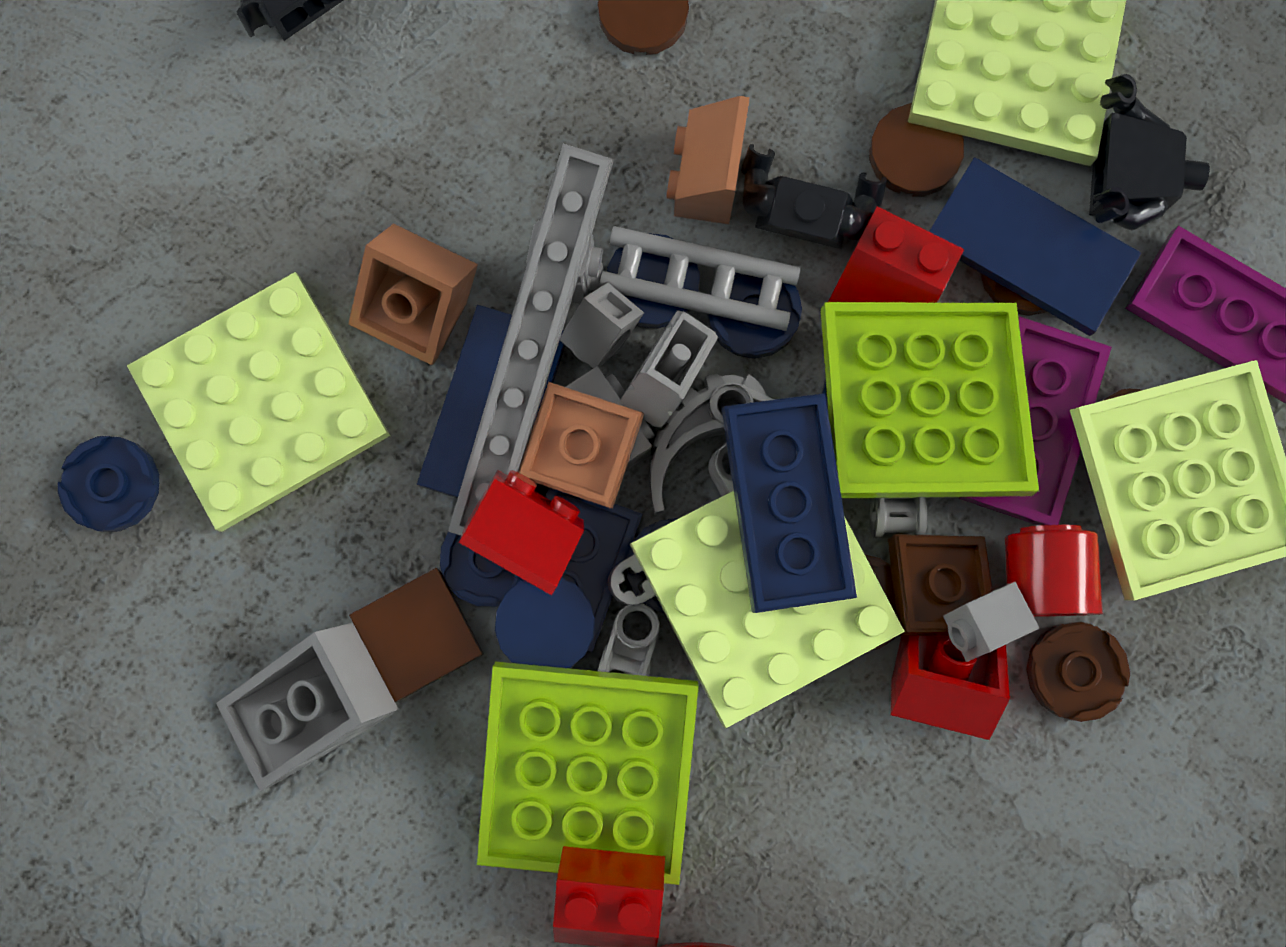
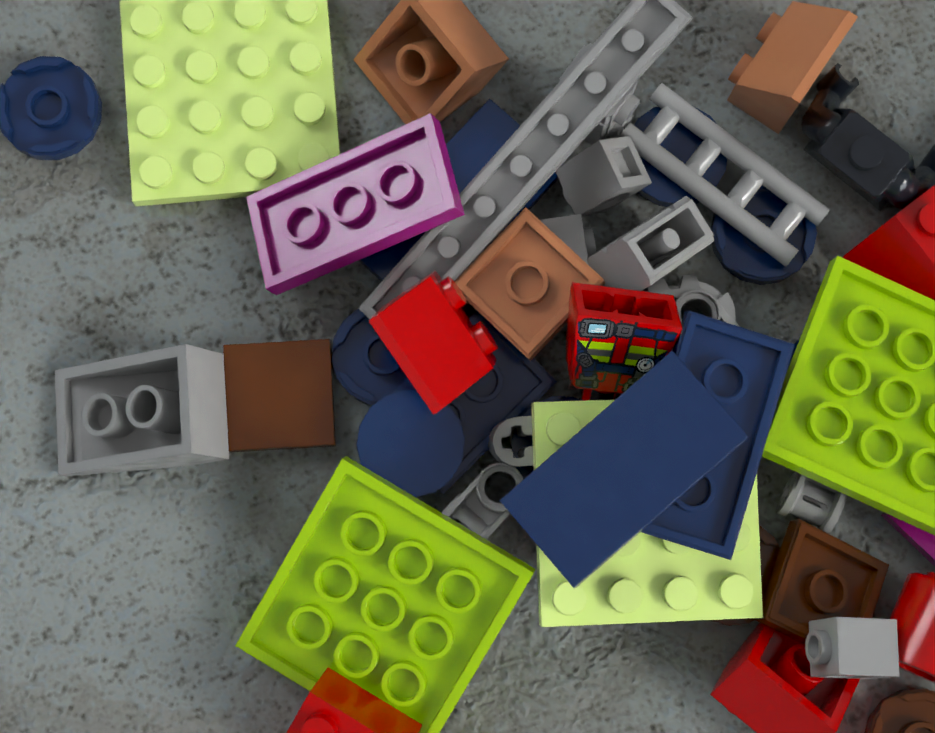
camera: 20 degrees right, 0 degrees up
(404, 446) = (354, 205): none -> plate
(677, 456) = (616, 337): none -> torso
(733, 565) = (624, 469): none -> dark blue tile

